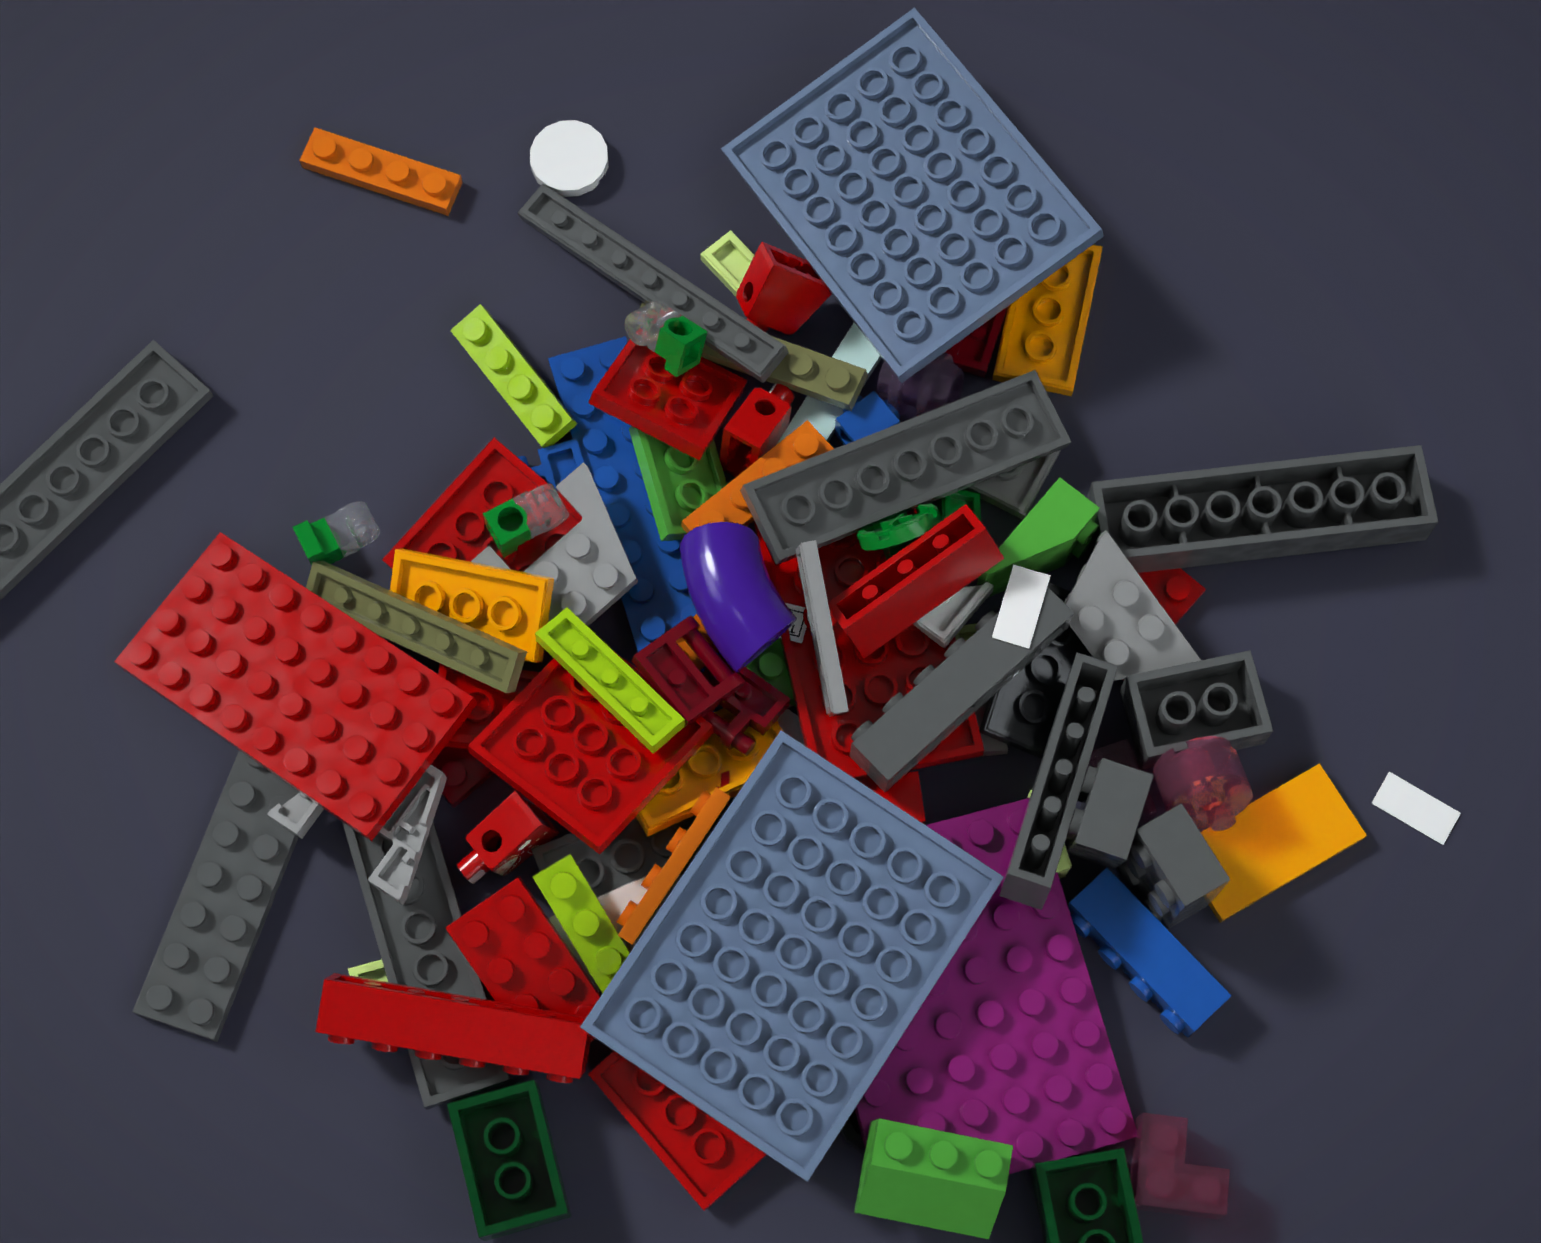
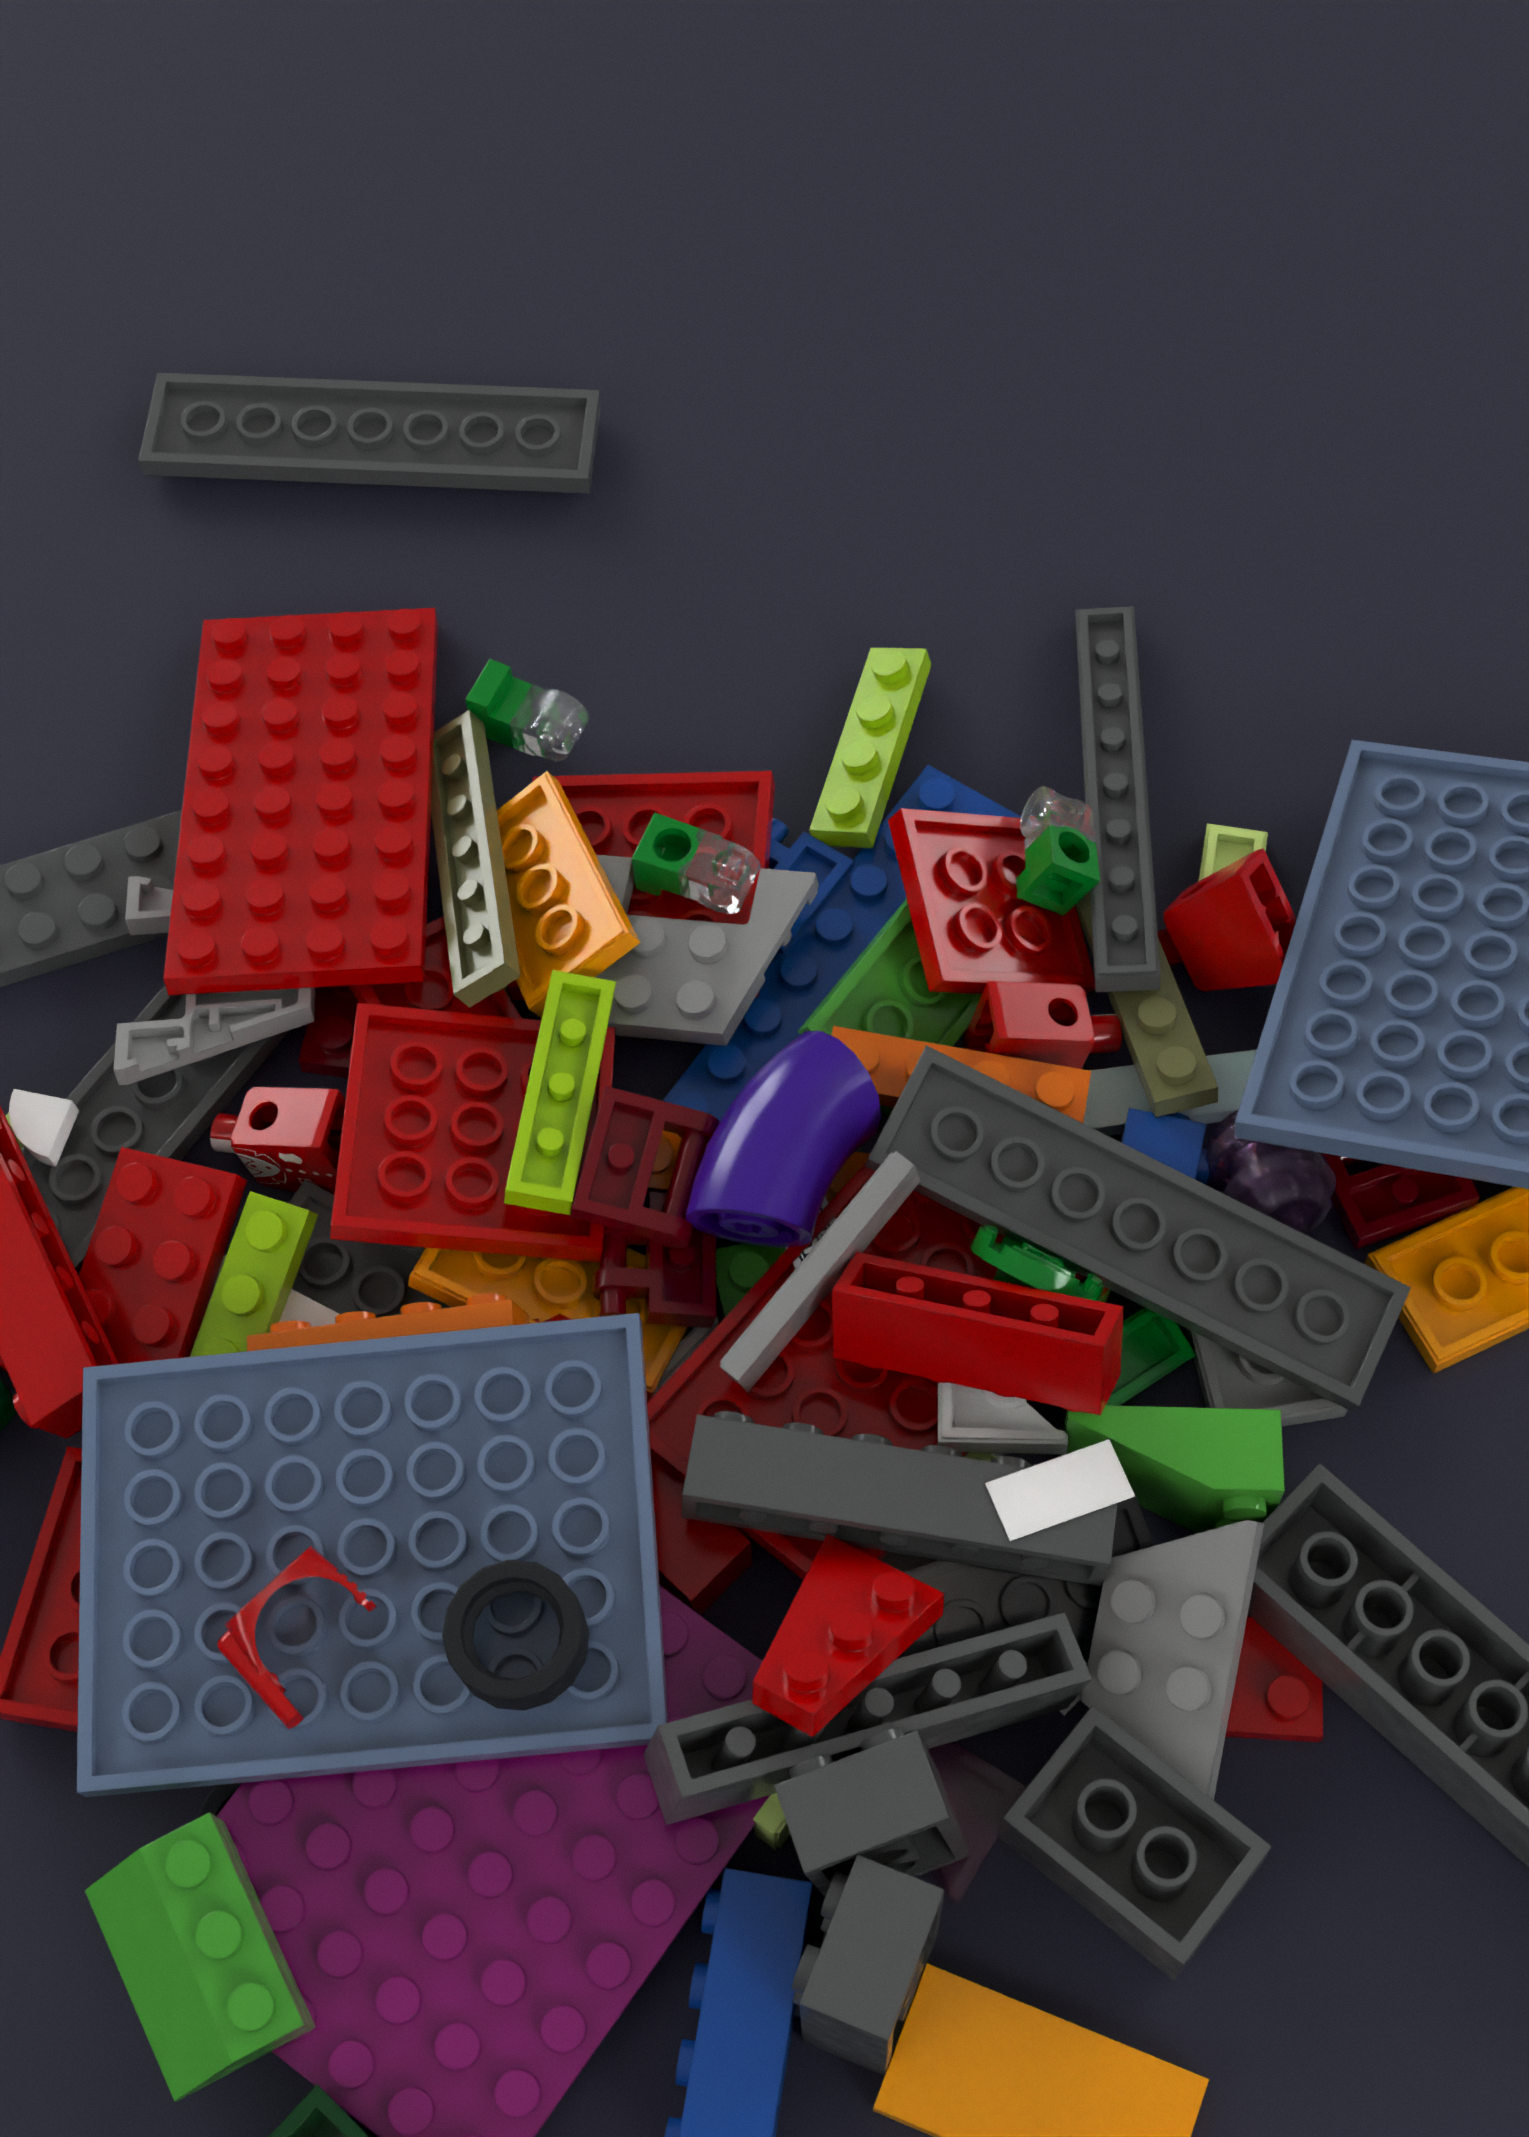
camera: 55 degrees right, 10 degrees down
(381, 171) = (998, 455): orange plate -> none
(385, 963) = (42, 1123): none -> white tile
(569, 157) = (1193, 612): white tile -> none
(789, 1030) = (239, 1641): none -> red helmet
(936, 895) = (483, 1589): none -> black tyre
(1016, 758) = (841, 1634): none -> red wing
(1206, 781) = (1030, 1926): clear pink brick -> none

